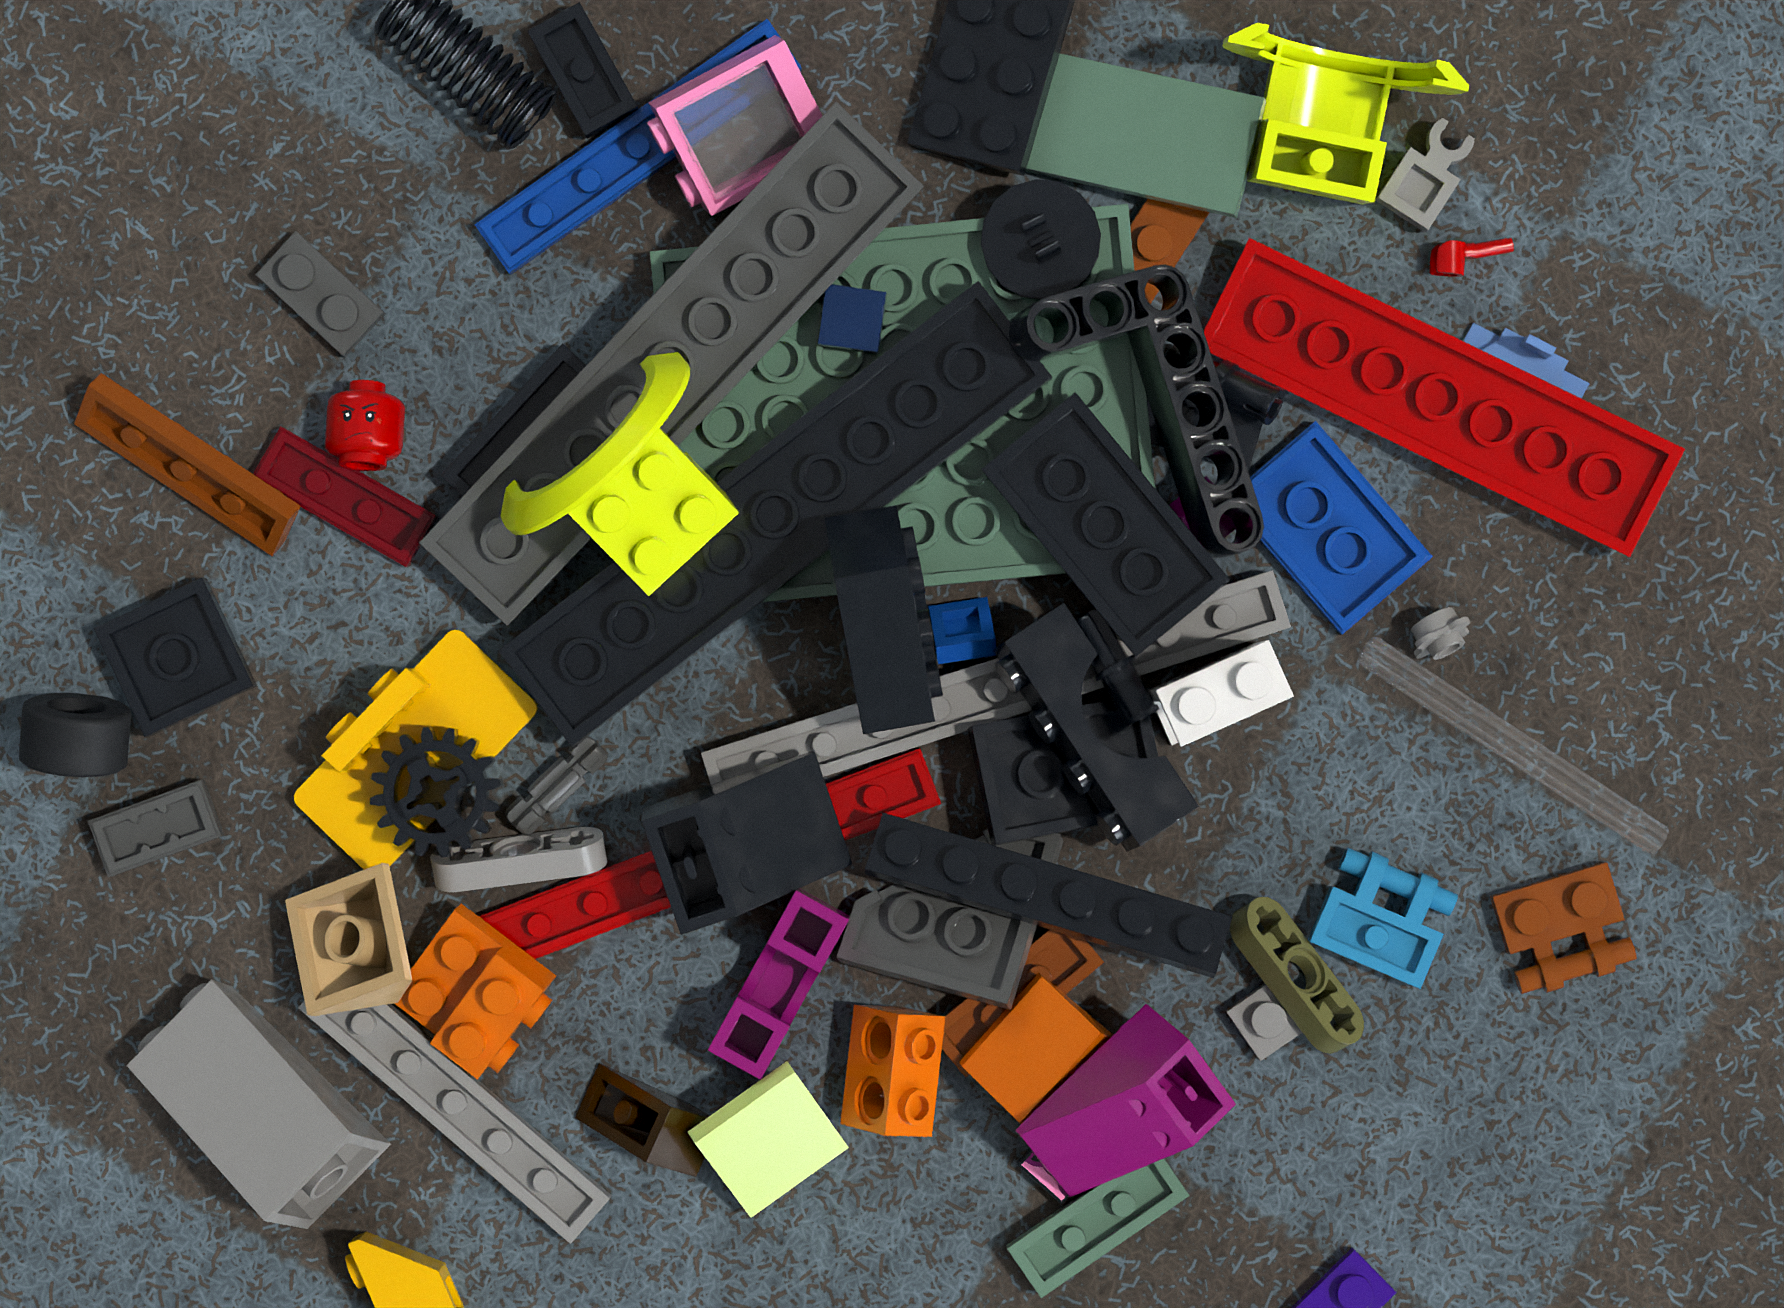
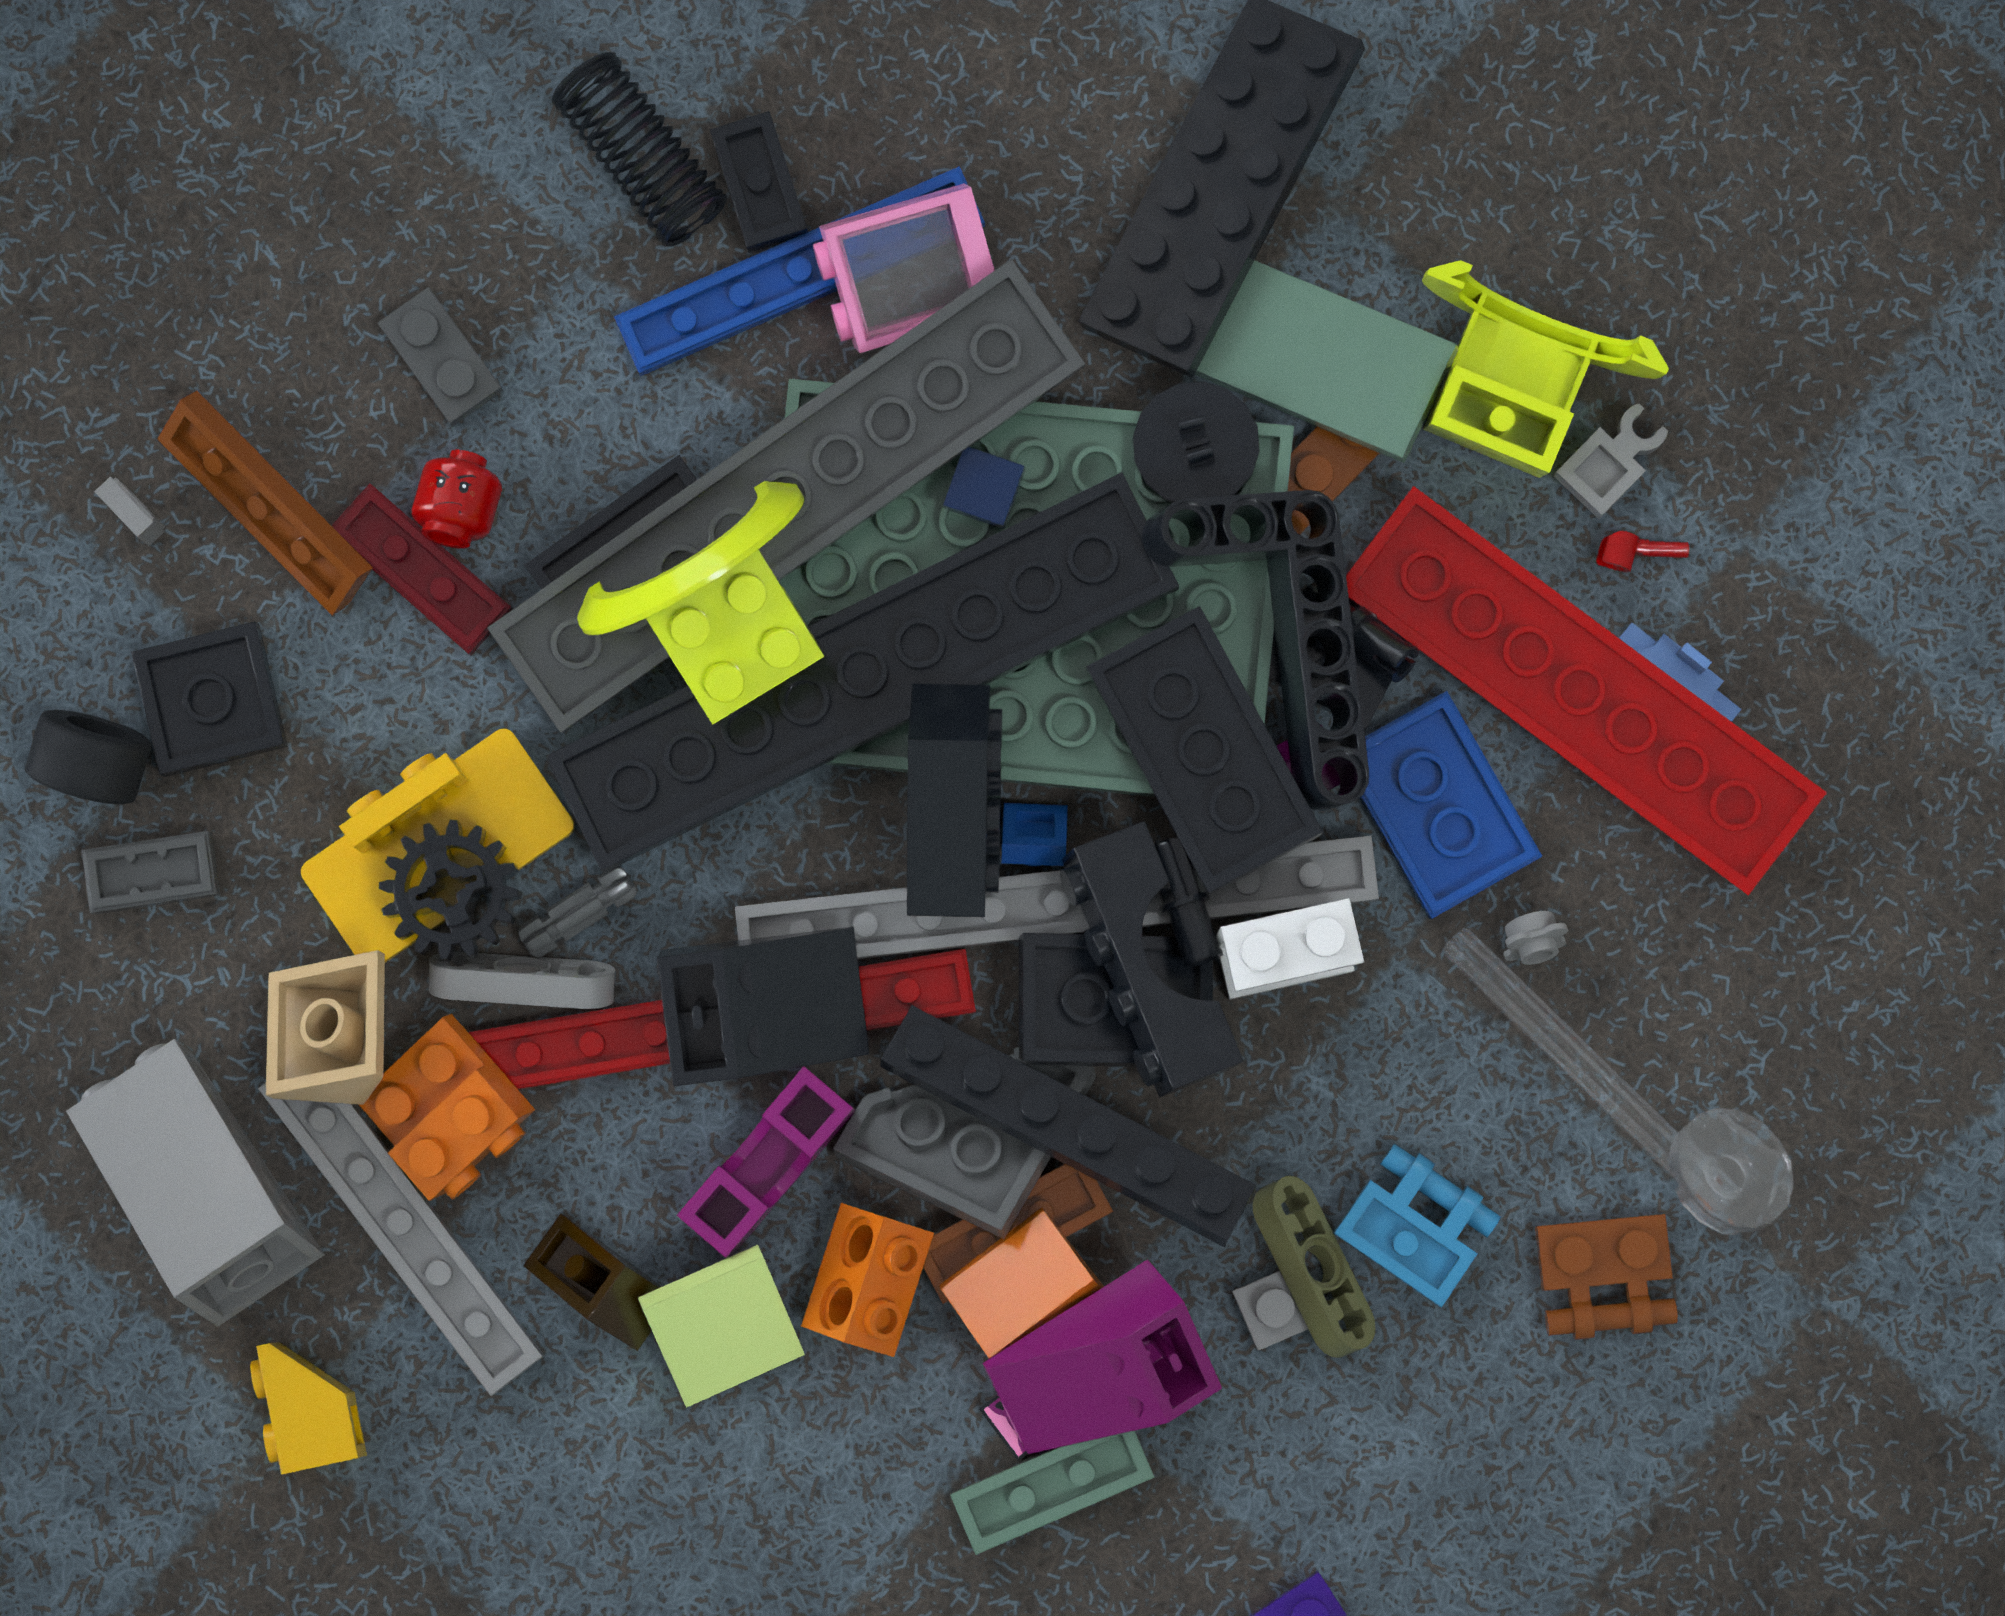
camera: 15 degrees right, 5 degrees down
(64, 497) = (130, 510): none -> light grey tile
(1660, 812) = (1731, 1171): none -> clear tile

